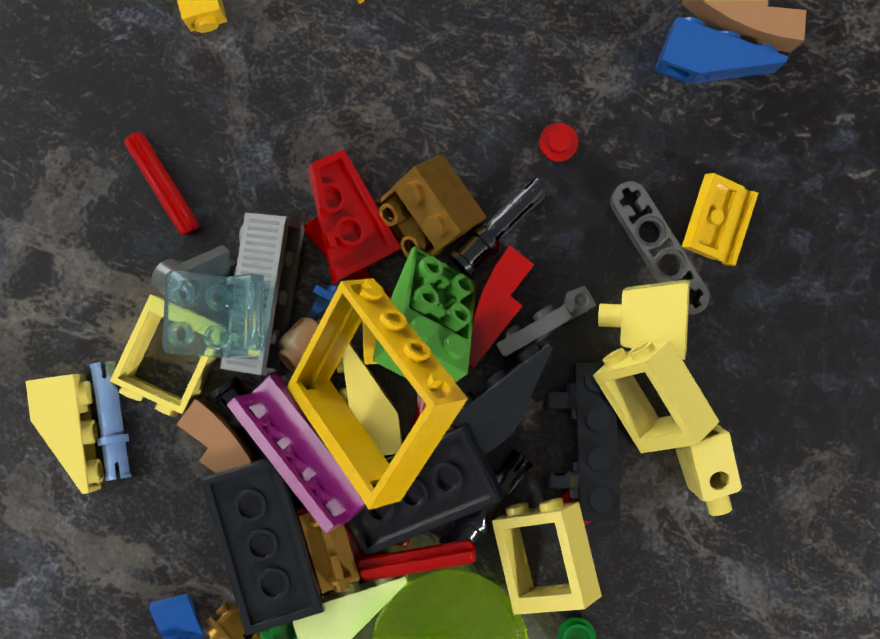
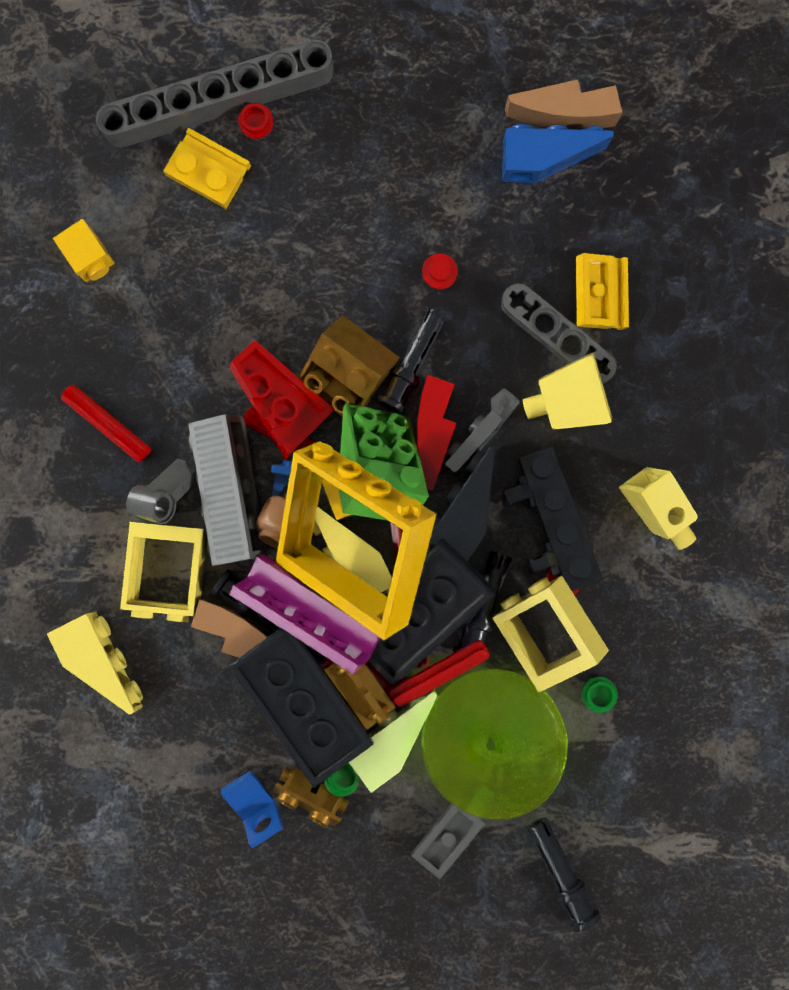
camera: 15 degrees left, 0 degrees up
(110, 421) = (131, 644): medium blue pin -> none
(213, 315) = (192, 520): clear light blue bracket -> none
(689, 410) = (613, 448): light yellow window -> none

